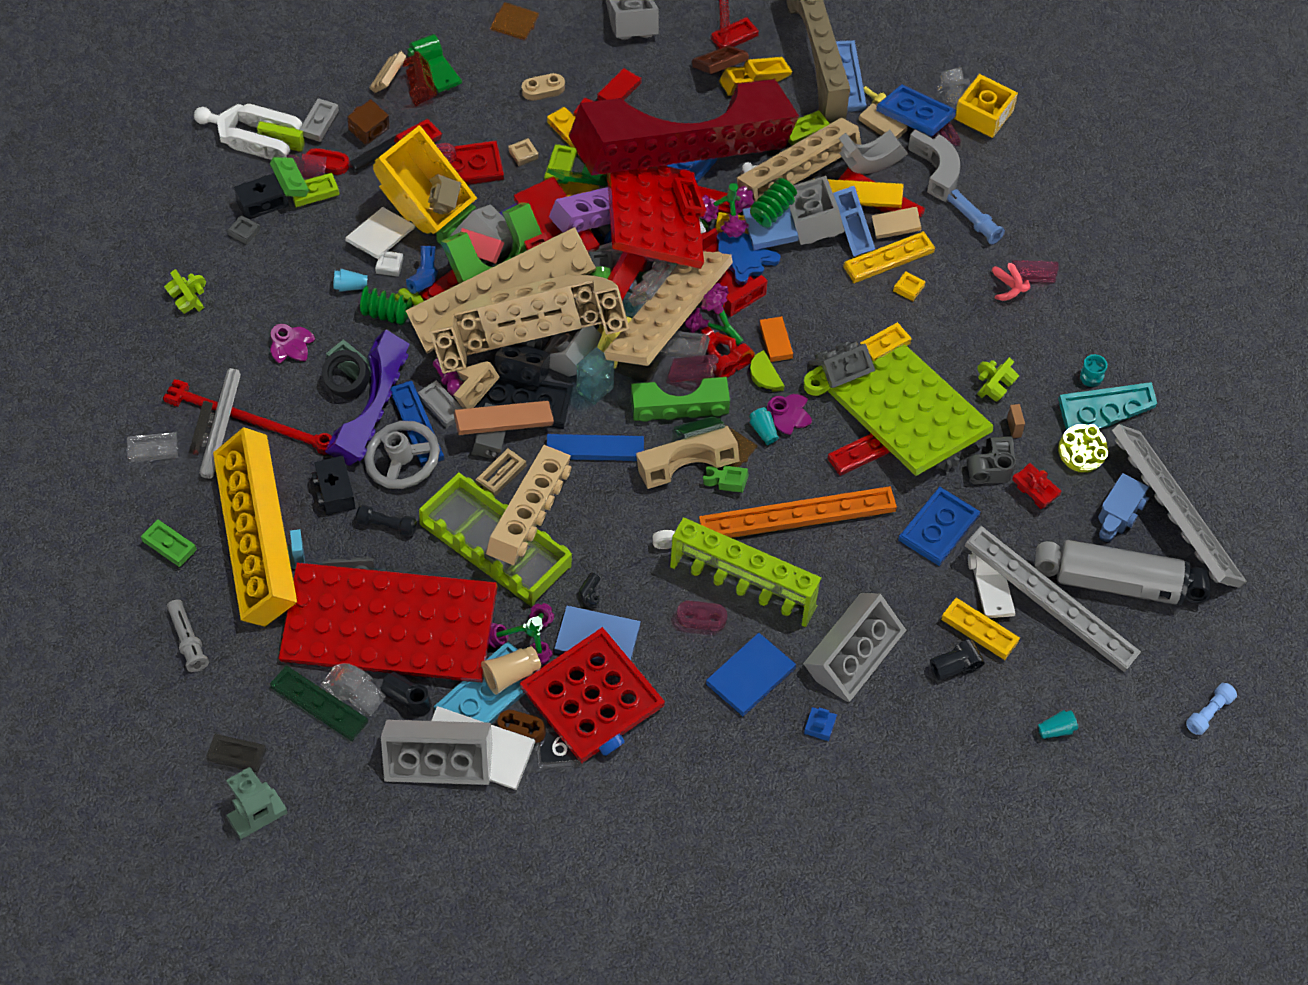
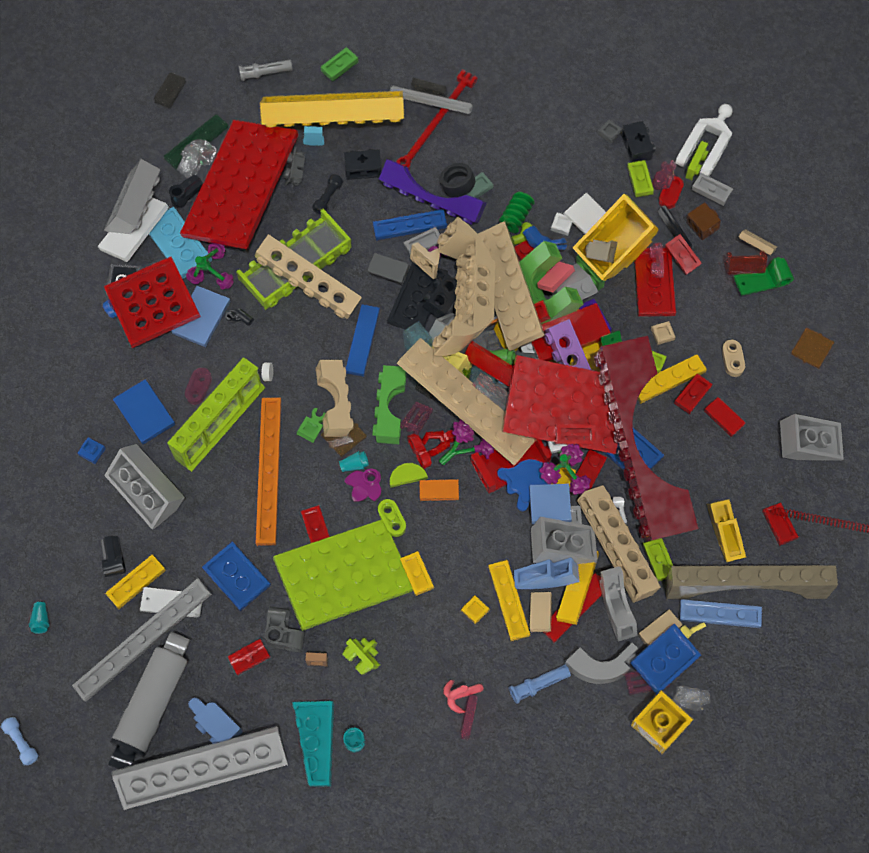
camera: 105 degrees right, 10 degrees up
(152, 447) = (420, 60): clear plate -> none
(189, 288) = (553, 89): lime hips -> none
(251, 798) = (122, 87): sand green tile -> none
(289, 176) = (647, 157): bright green plate -> none
(292, 344) = (495, 152): magenta plate -> none
(348, 280) = (547, 191): medium azure cone -> none
(401, 453) = (380, 205): light grey piece -> none
(495, 485) = (369, 280): tan tile -> none
(503, 417) = (391, 274): nougat tile -> none
(510, 668) = (180, 248): tan plant -> none
(523, 724) = (142, 256): reddish brown beam -> none
(686, 345) = (438, 418): clear plate -> none
(699, 427) = (359, 411): clear green piece -> none
(720, 59) = (743, 500): copper tile -> none
(773, 202) = (559, 501): green piece -> none
(844, 363) = (397, 528): dark grey bracket -> none
(1083, 448) = (279, 708): neon yellow tile -> none

